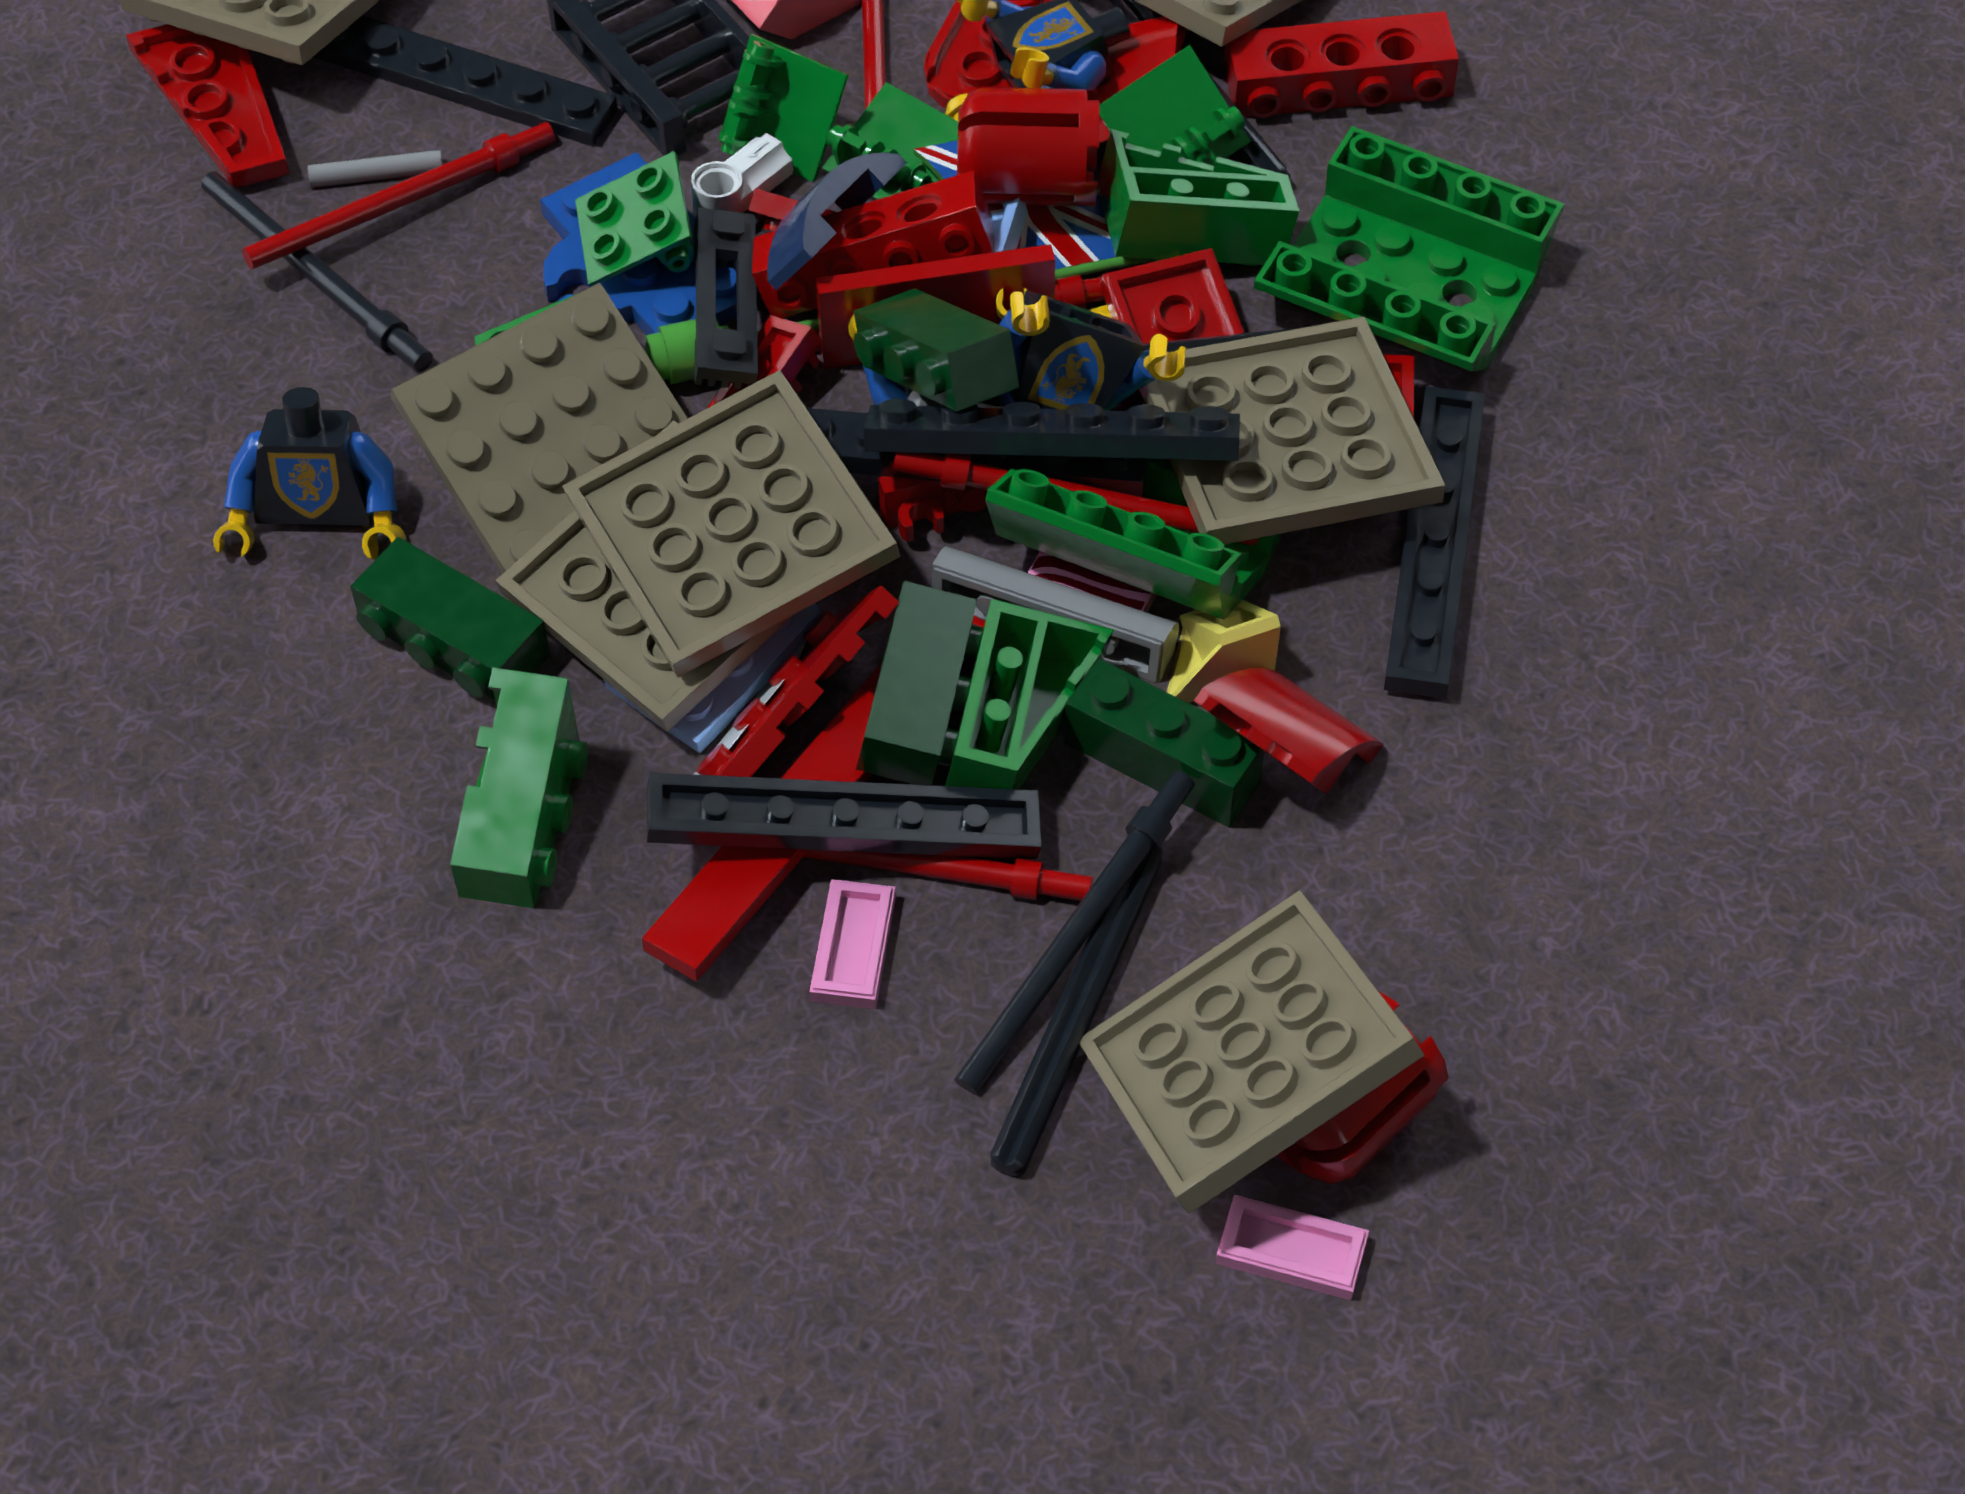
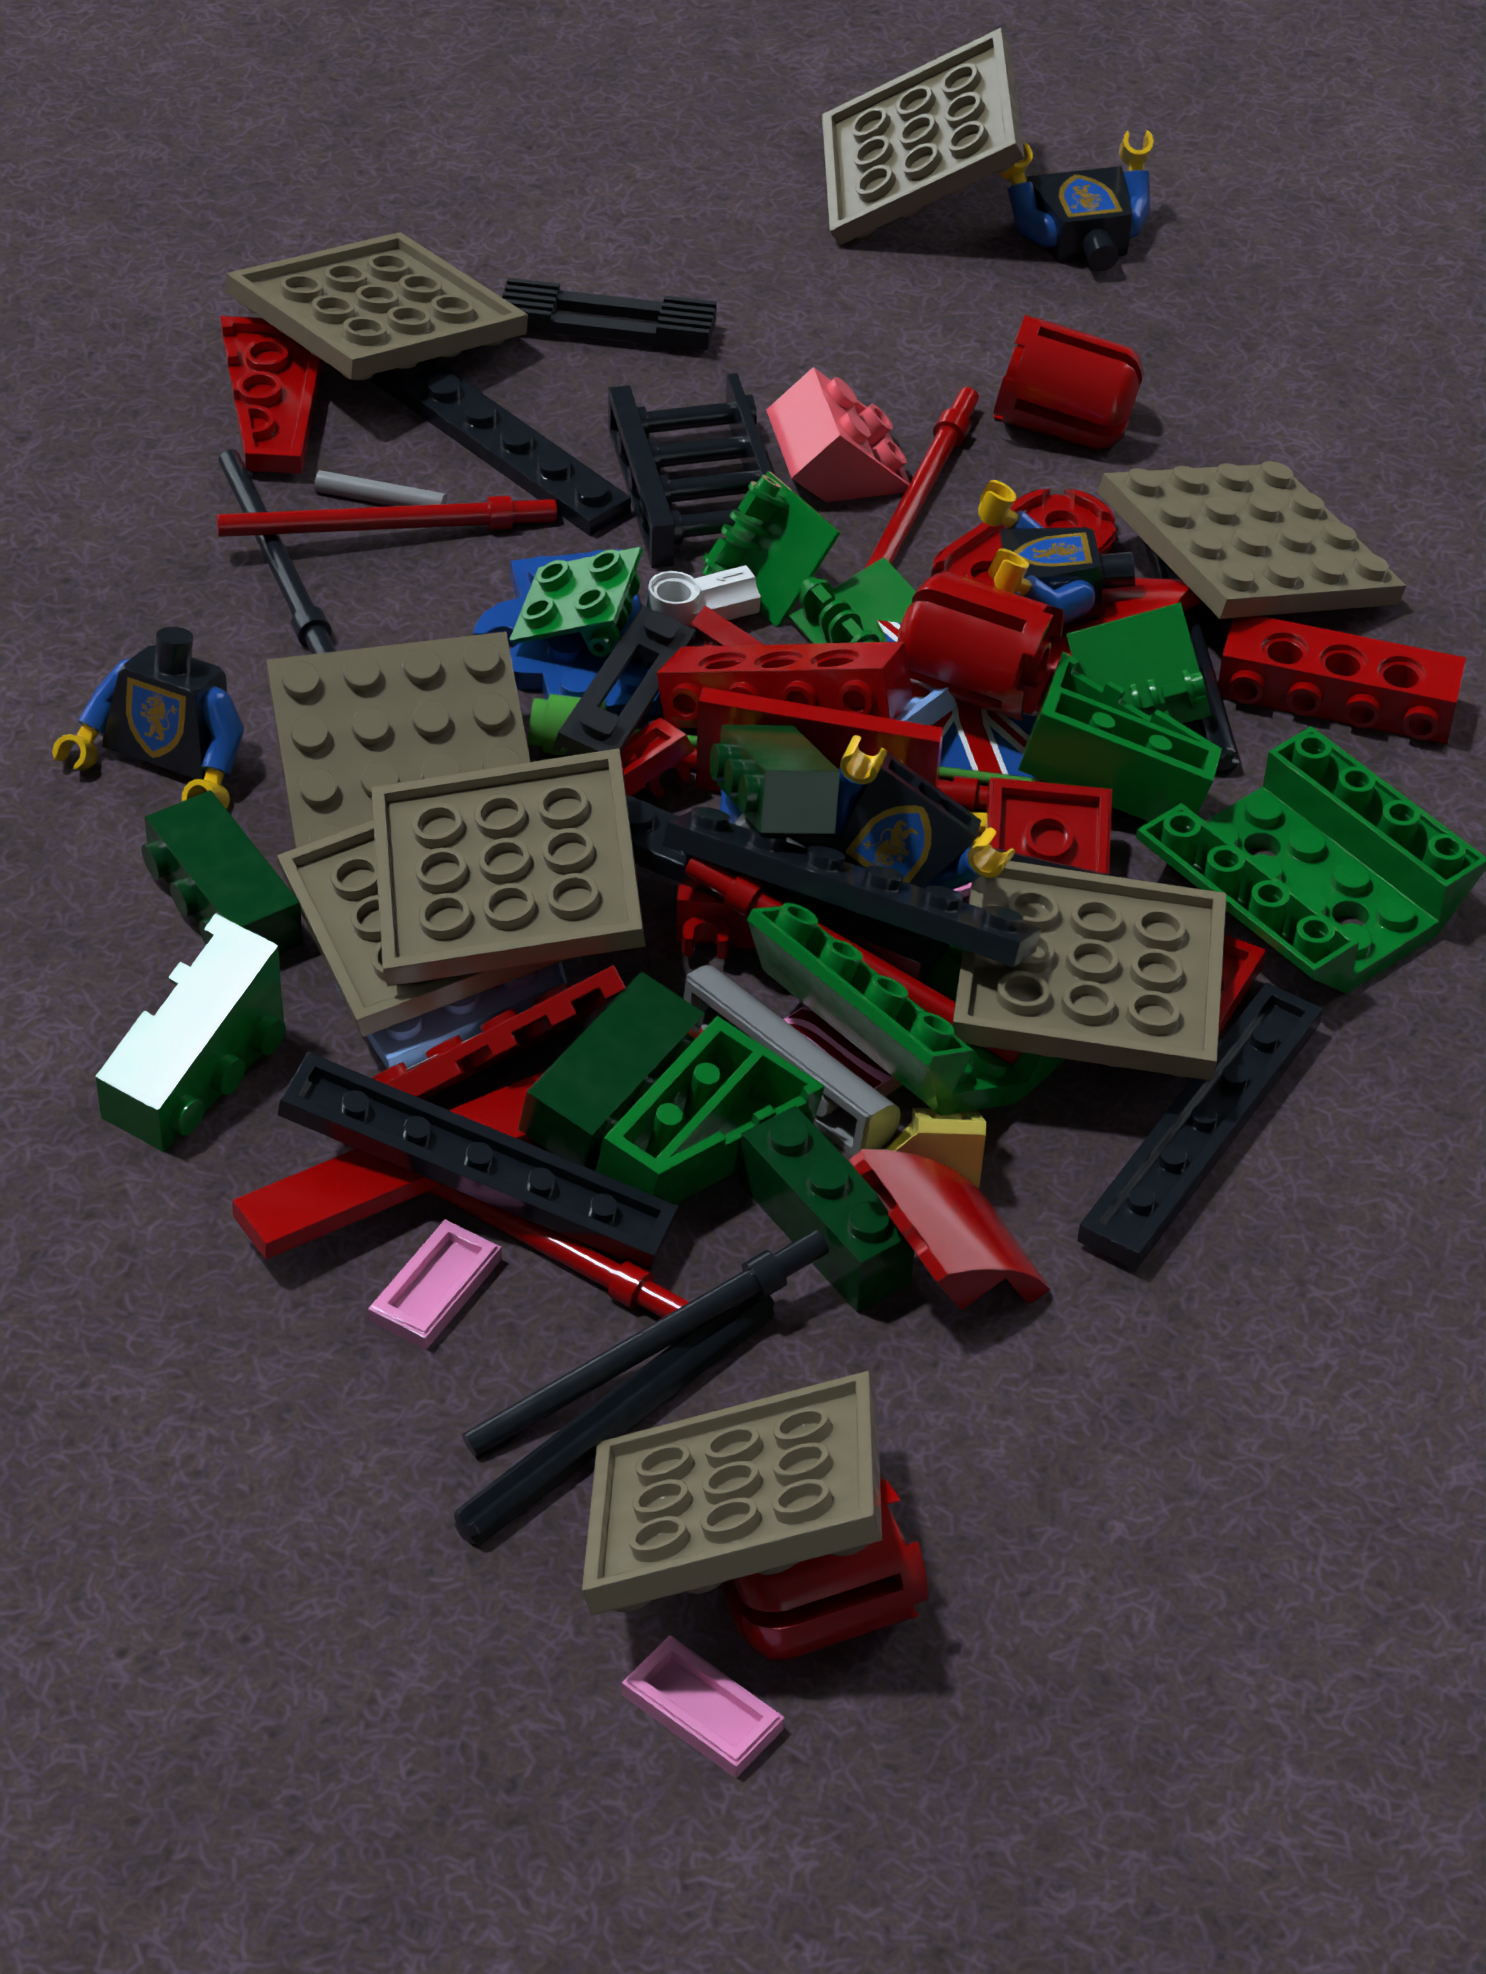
camera: 20 degrees right, 10 degrees down
(804, 229) = (774, 618): dark blue slope -> none

